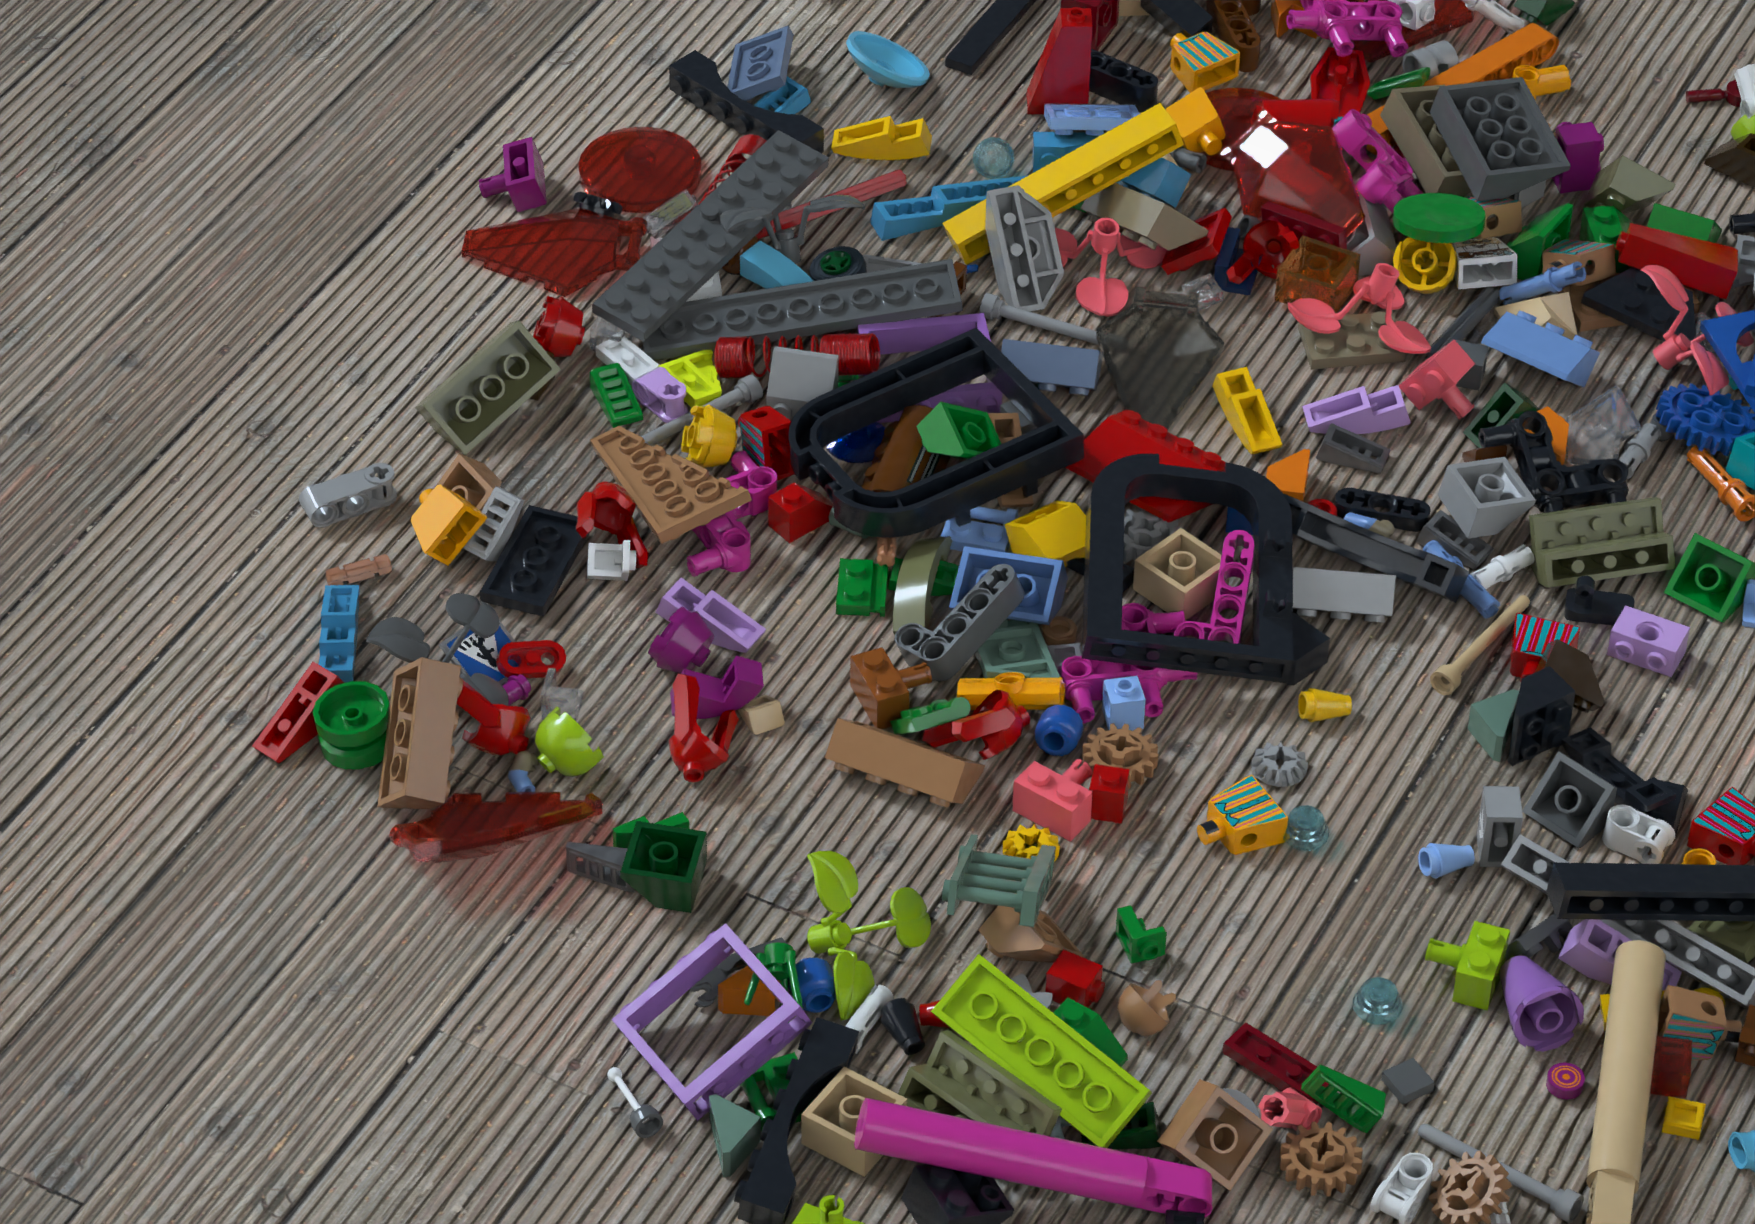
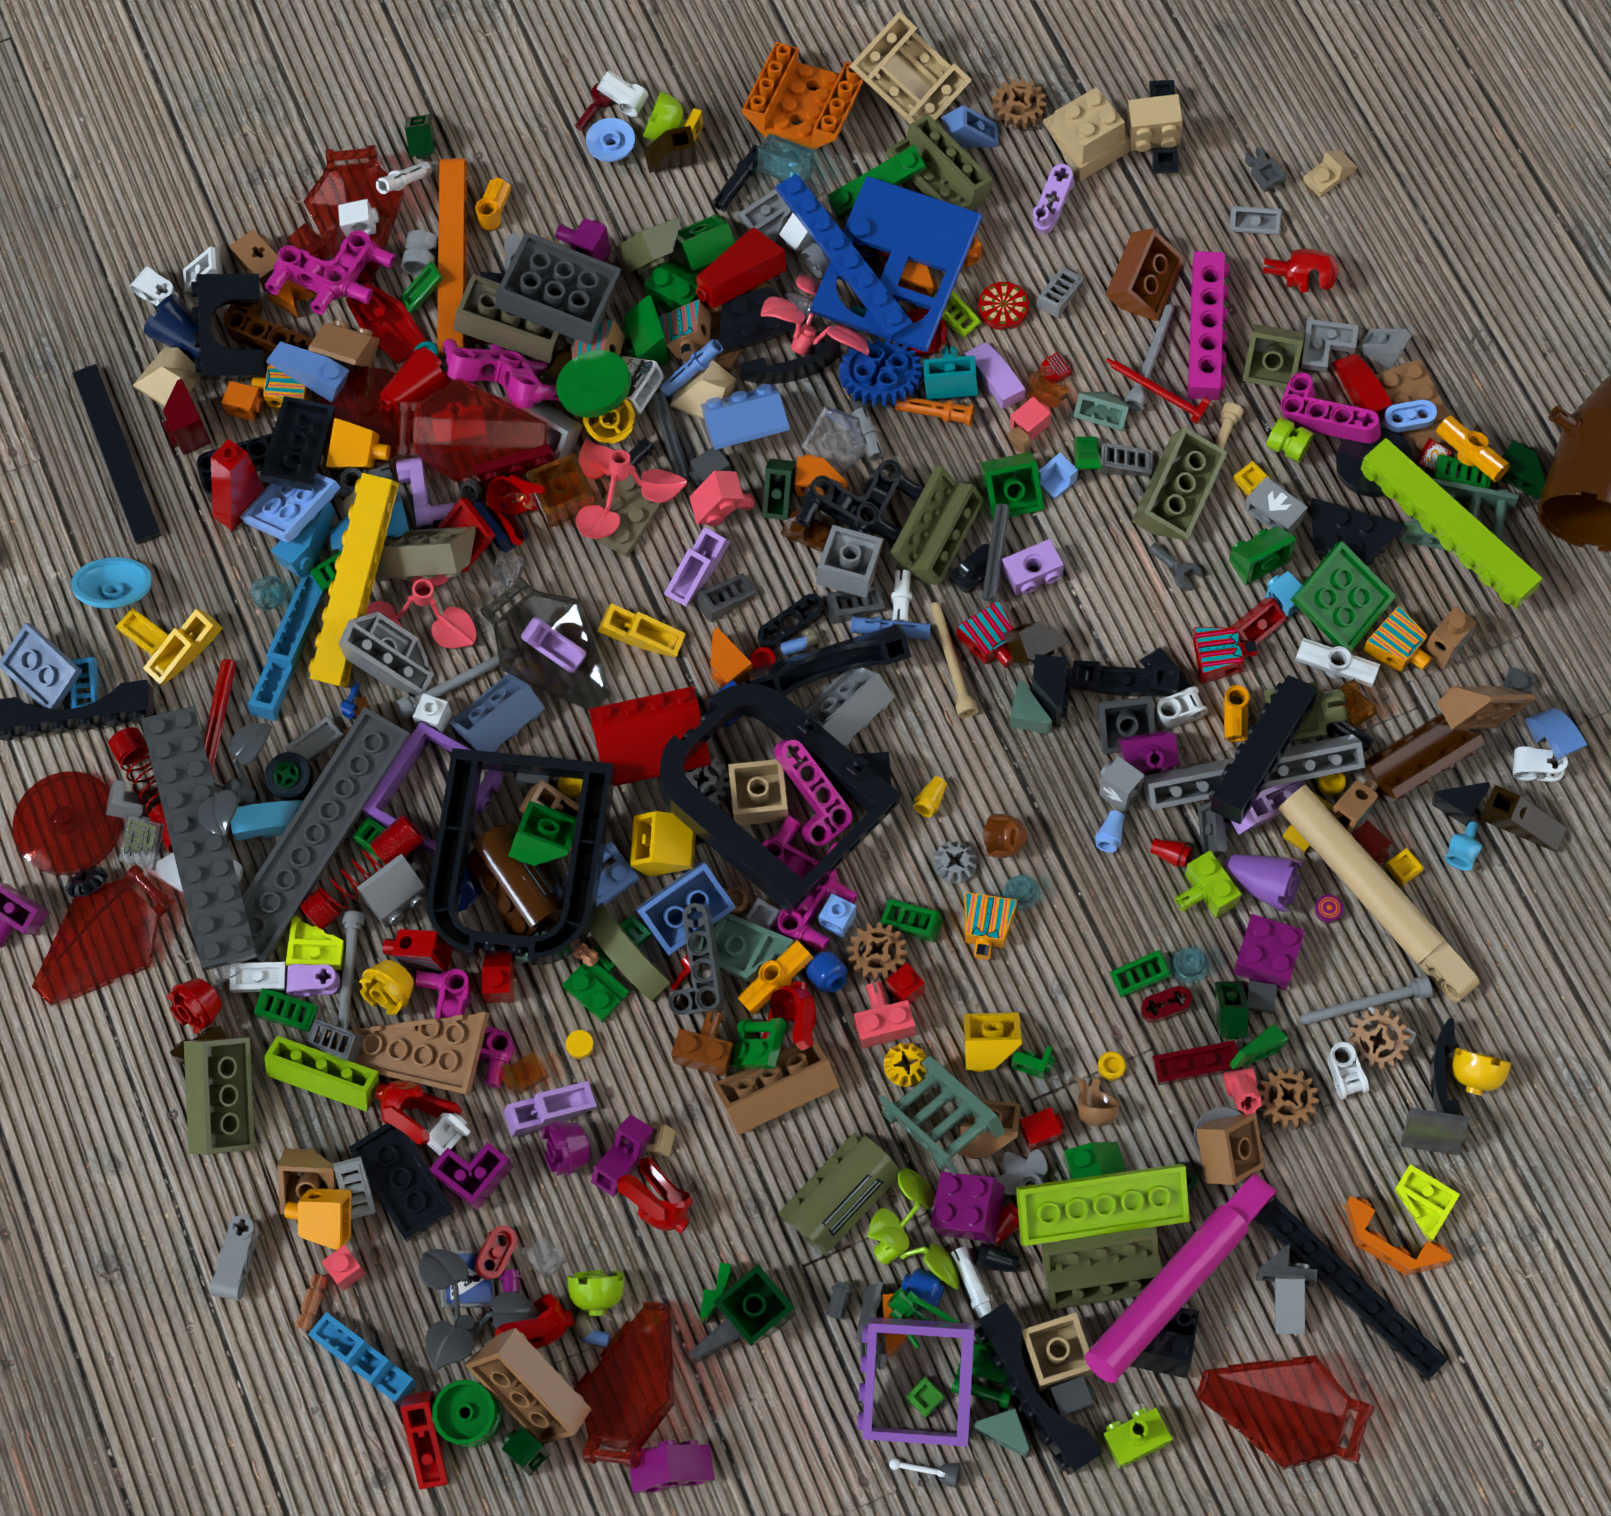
camera: 45 degrees left, 25 degrees up
(357, 790) = (525, 1450): none -> dark green slope
(411, 567) = (343, 1267): none -> coral brick
(447, 894) = (672, 1466): none -> magenta brick
(578, 441) = (321, 1073): none -> lime brick
(590, 601) = (475, 1180): none -> magenta brick
(620, 434) = (351, 1049): none -> flat silver slope
(693, 177) = (123, 803): none -> light grey panel
(703, 1055) = (925, 1397): none -> bright green tile
(727, 582) = (524, 1073): none -> clear orange bracket
(747, 930) = (839, 1300): none -> dark grey pin
(796, 606) = (579, 1044): none -> yellow tile
(820, 1166) = (1072, 1397): none -> dark grey brick
(867, 106) = (141, 631): none -> yellow tile
(879, 861) = (840, 1192): none -> olive brick
(926, 960) = (967, 1206): none -> magenta brick
(1003, 320) = (433, 713): none -> white brick
(1117, 883) = (990, 1039): none -> yellow slope
(1147, 81) = (297, 443): none -> black plate
(1152, 43) = (242, 401): none -> orange brick
(1159, 351) = (553, 645): none -> lavender animal
(1185, 772) = (933, 927): none -> green slope
(1202, 1005) = (1111, 1066): none -> yellow tile
(1214, 187) = (413, 471): none -> lavender beam
(1230, 55) = (310, 369): none -> medium blue slope
(1283, 64) = (345, 344): none -> medium nougat slope
(1314, 1009) = (1164, 998): none -> dark red beam
(1346, 777) = (1004, 836): none -> dark orange hair
(1349, 971) = (1145, 982): none -> green slope
(1363, 1055) = (1231, 1009): none -> dark green slope
(1419, 312) = (640, 451): none -> black pin
(1460, 1050) = (1269, 951): none -> magenta brick
(1477, 910) = (1173, 852): none -> red cone
(1561, 830) = (1150, 751): none -> magenta brick
(1636, 599) = (995, 552): none -> dark grey axle
(1638, 363) = (792, 370): none -> black slope
(1700, 117) = (610, 131): none -> light blue dish

